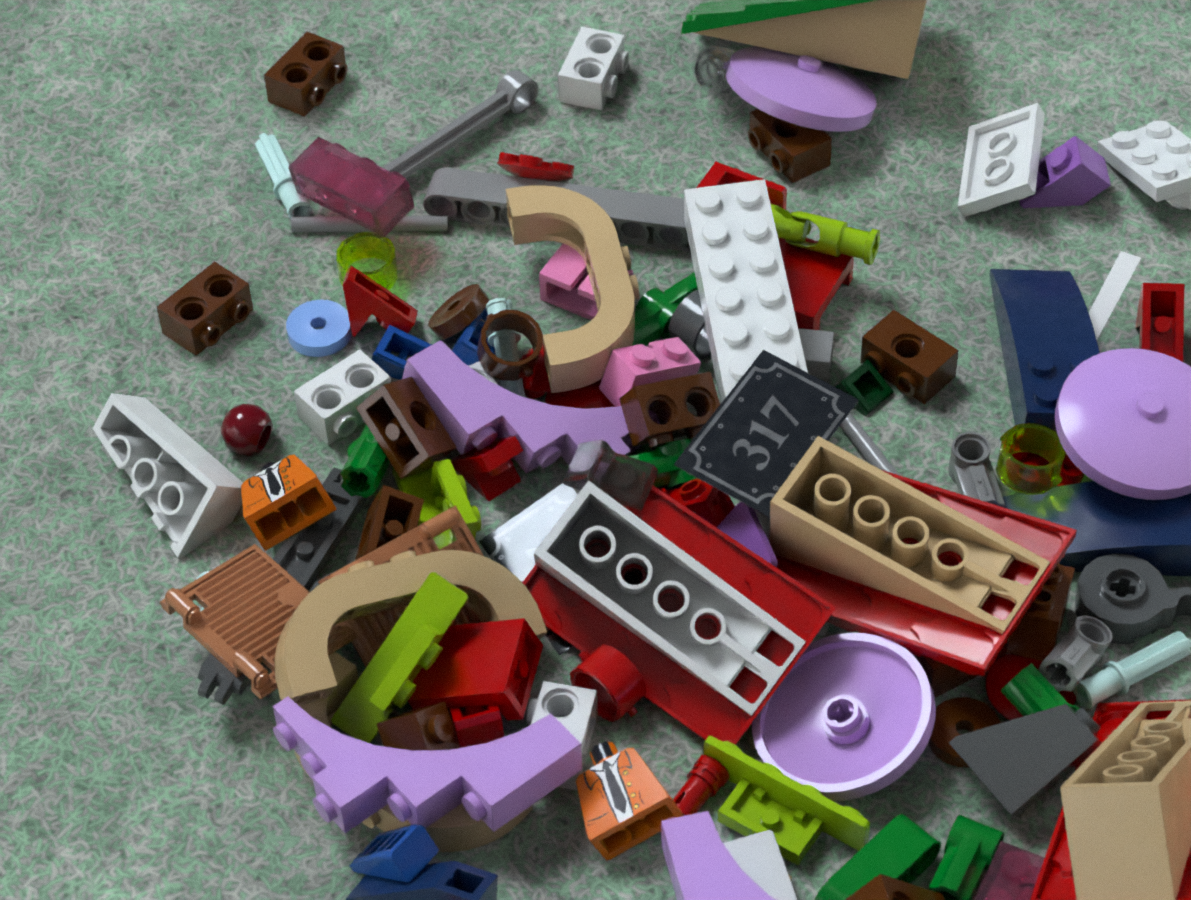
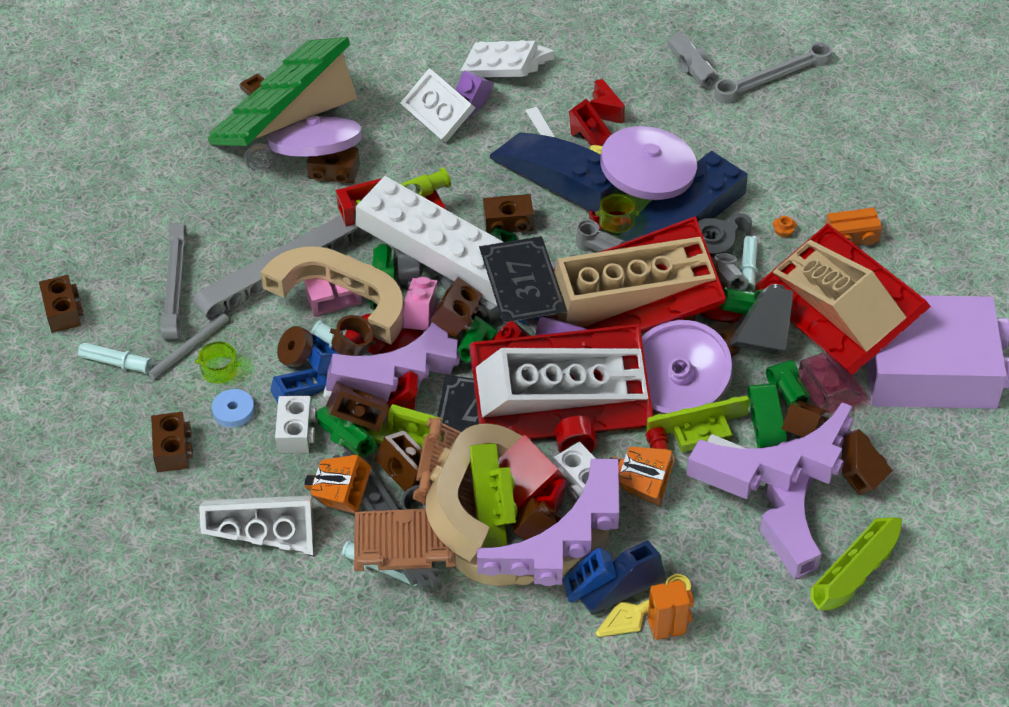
camera: 50 degrees left, 0 degrees up
(246, 429) = (269, 474): dark red piece -> none
(351, 186) = (173, 330): clear pink brick -> none
(368, 297) = (250, 375): red slope -> none
(535, 168) = (240, 260): red dish -> none
(592, 68) = (199, 198): white brick -> none
(615, 474) = (476, 349): clear smoke slope -> none

